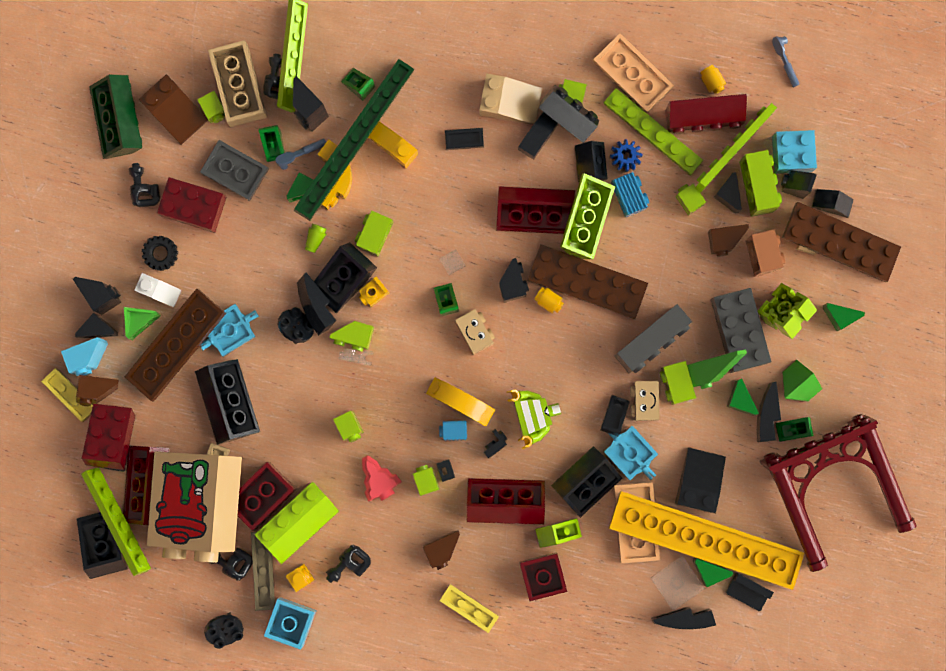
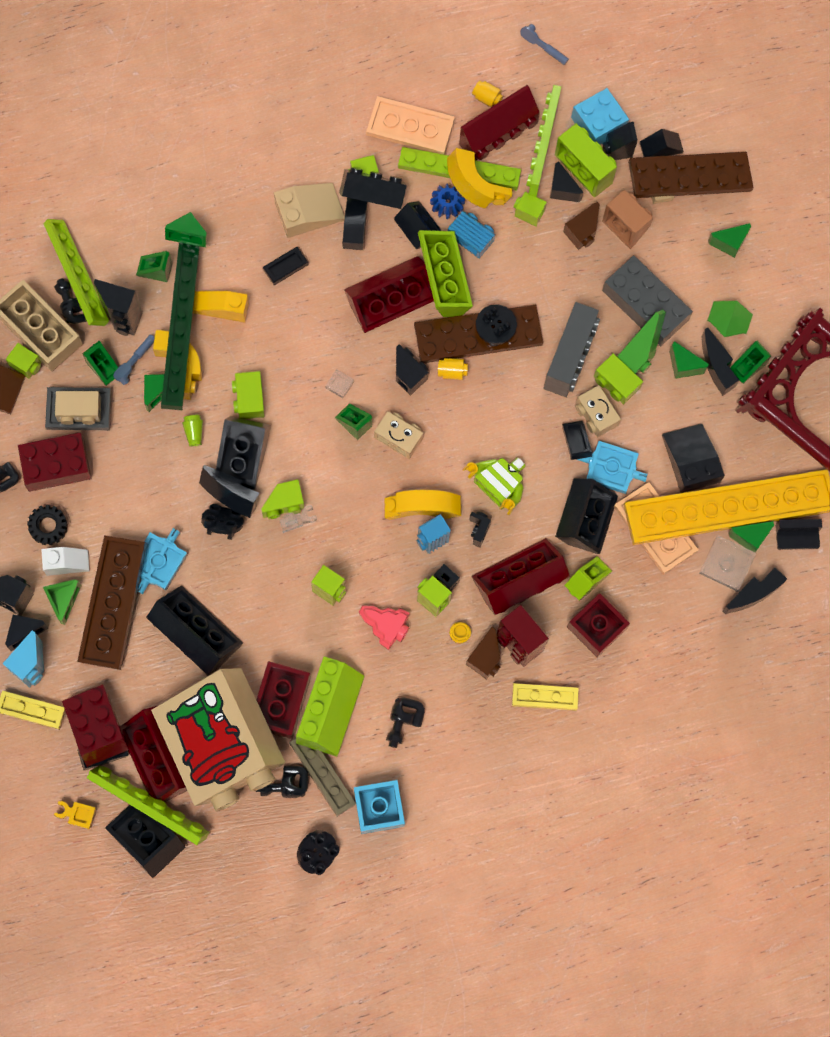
camera: 40 degrees left, 10 degrees down
(62, 498) = (79, 815): none -> yellow plate
(94, 389) = (54, 688): reddish brown slope -> none
(232, 170) = (78, 407): none -> tan brick
(300, 577) = (363, 759): yellow brick -> none
(380, 292) = (279, 458): yellow brick -> none
(398, 68) = (187, 231): none -> green slope
(432, 519) = (460, 632): none -> yellow plate
(474, 554) = (521, 636): none -> dark red brick
(604, 293) = (503, 331): none -> black plate
(651, 152) = (469, 182): none -> yellow arch
(787, 310) = (679, 258): lime brick -> none

